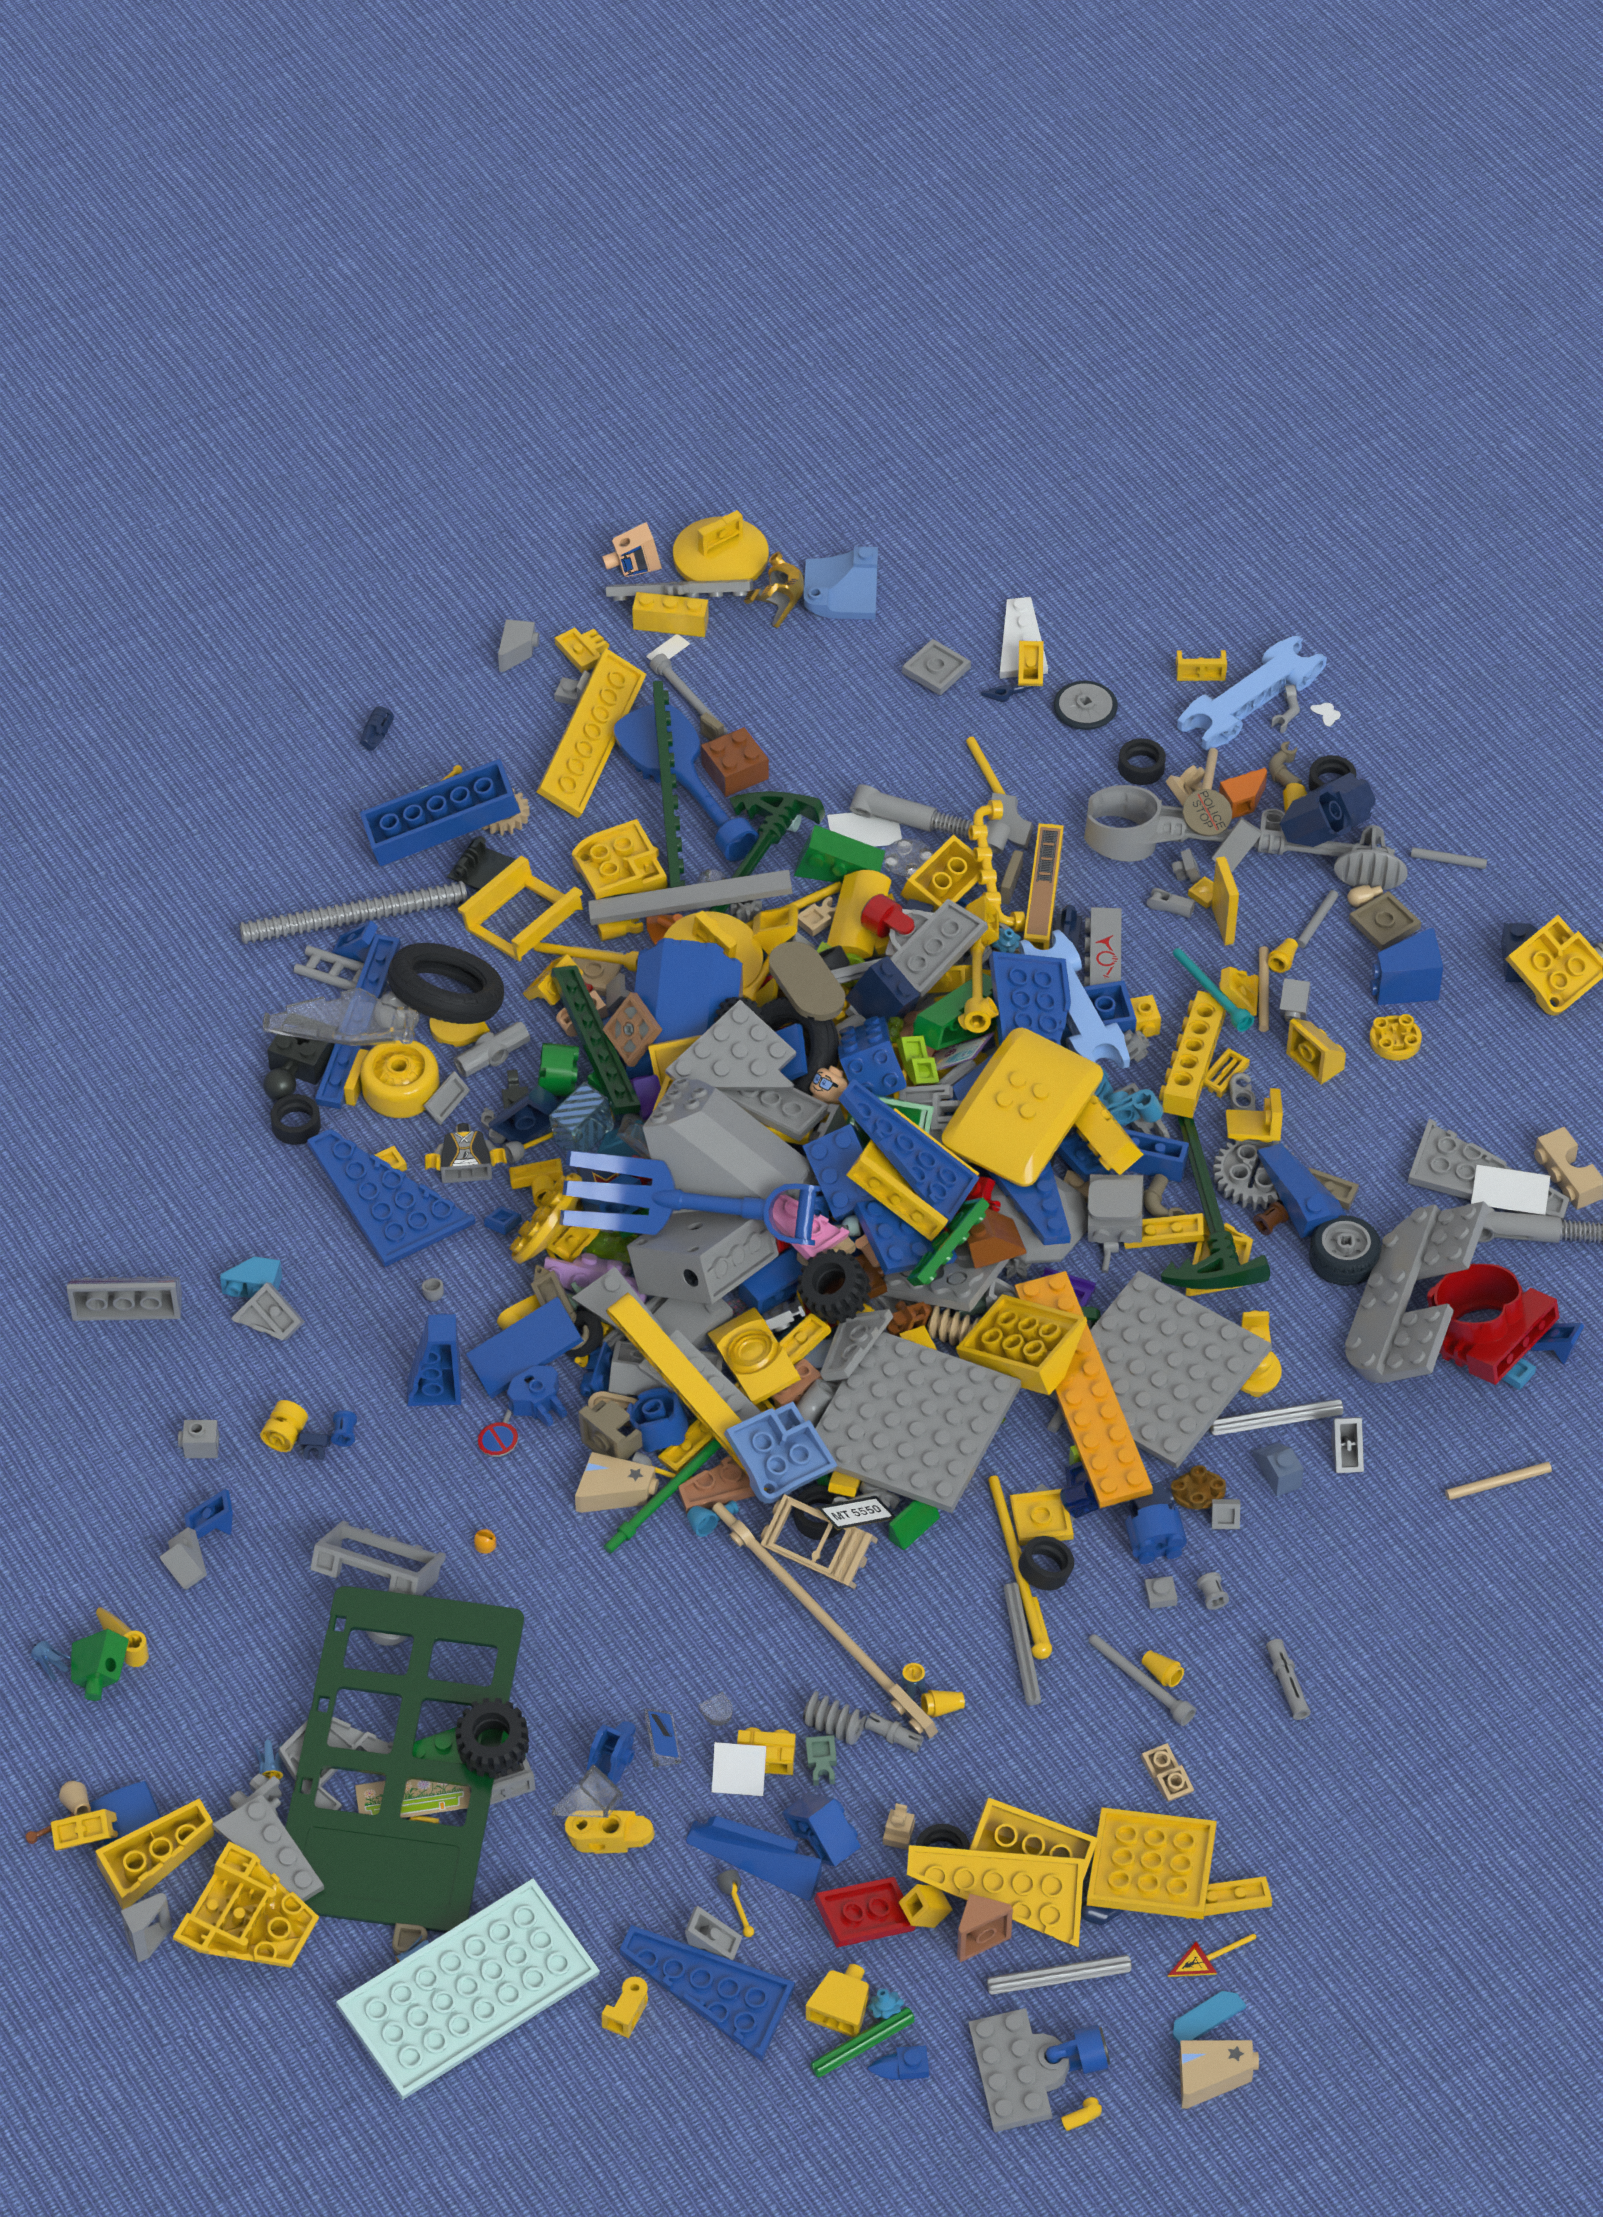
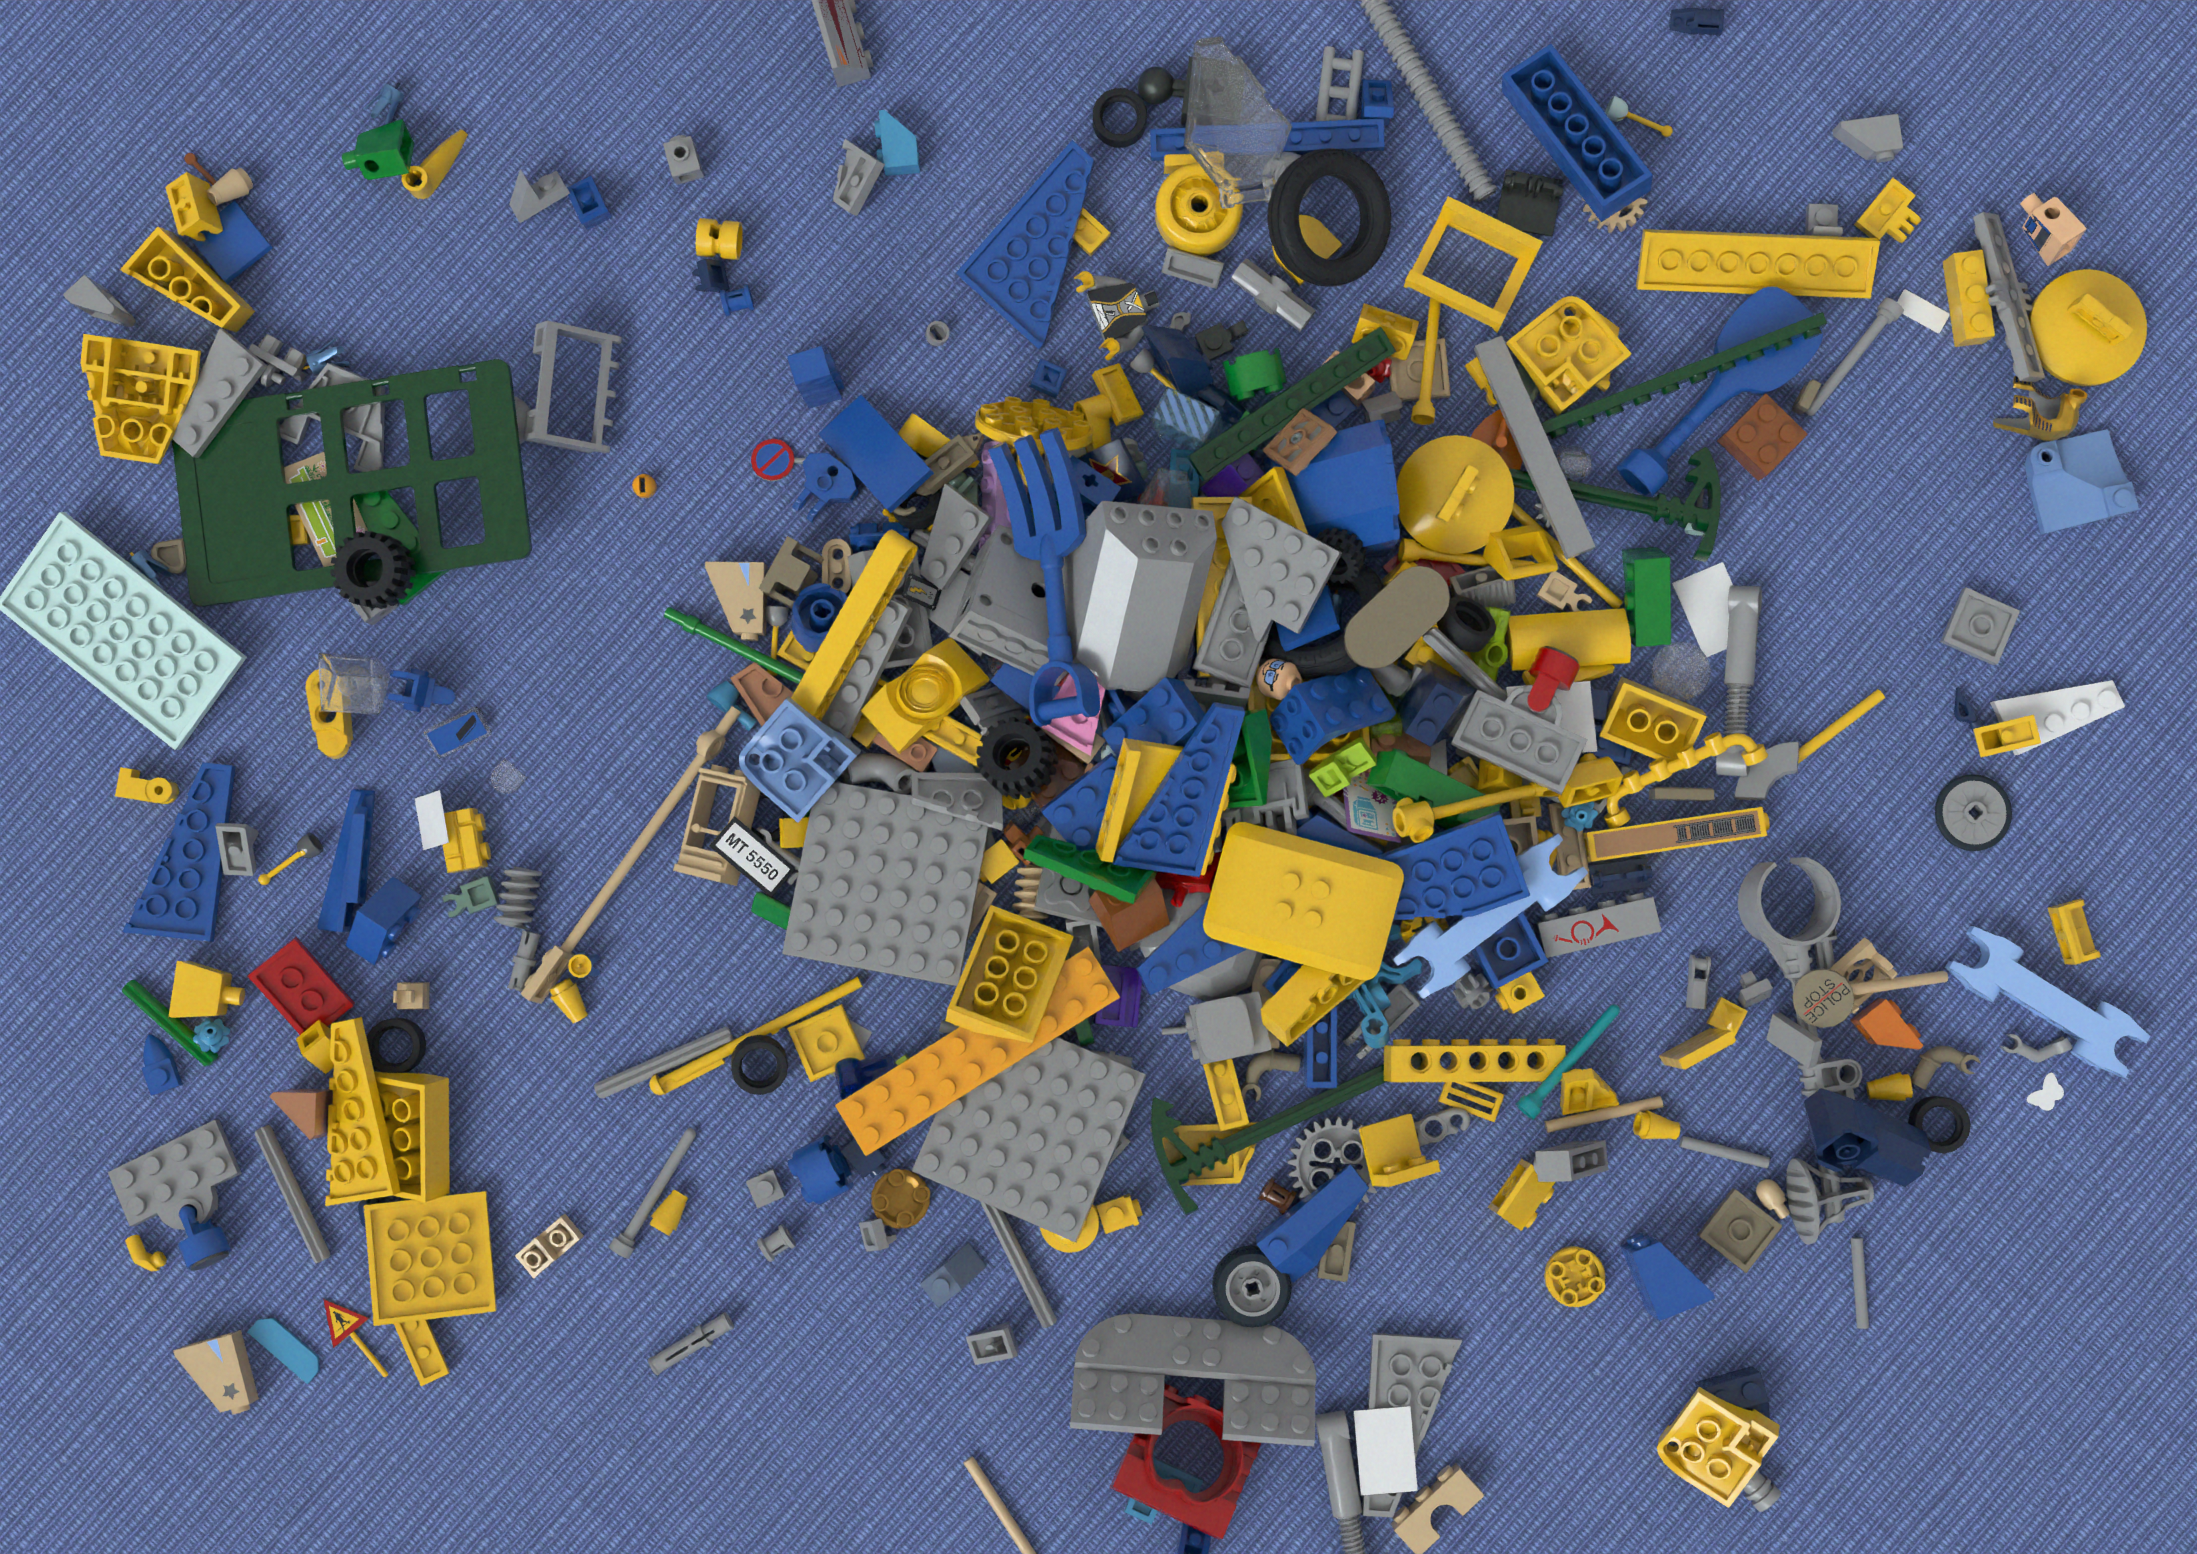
camera: 75 degrees right, 35 degrees up
(1139, 775) = (1924, 894): black tyre -> none

